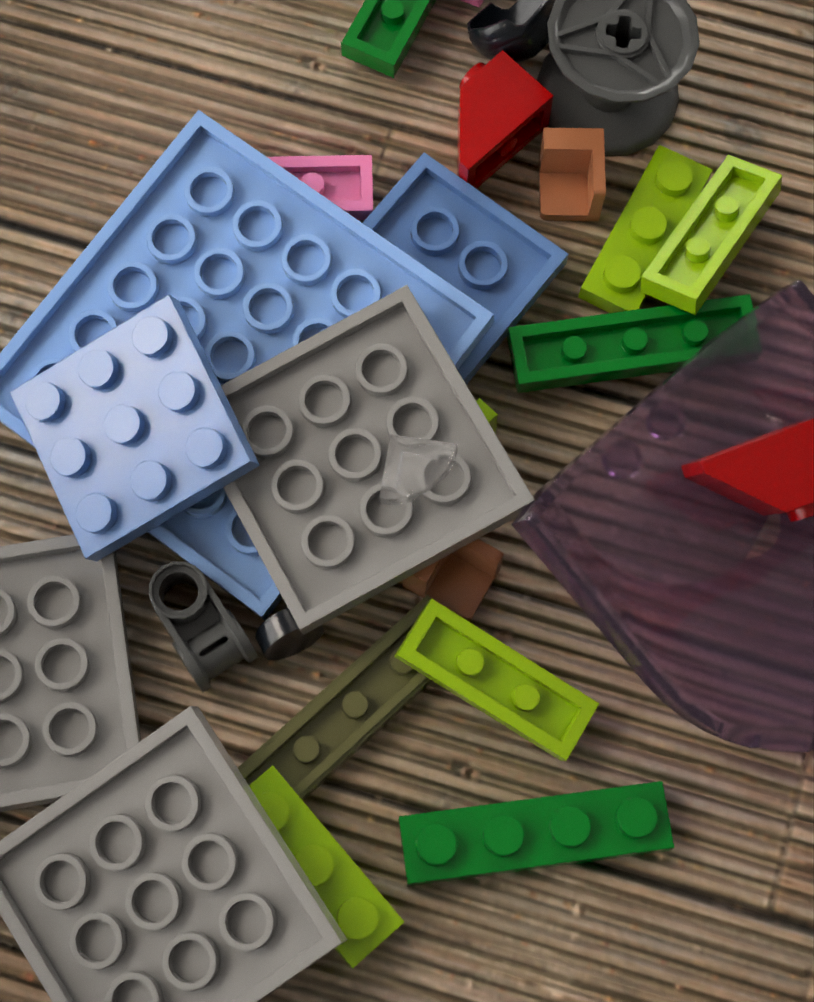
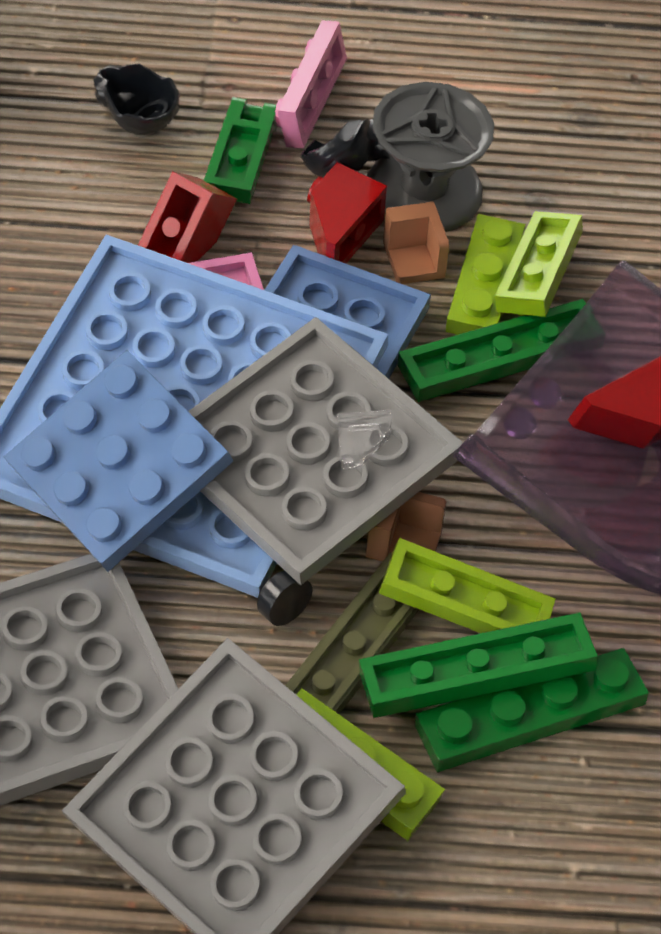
camera: 15 degrees left, 20 degrees down
(206, 632) = (211, 609): dark grey piece -> none
(304, 97) = (187, 218): none -> red slope
(481, 778) = (477, 664): none -> green plate

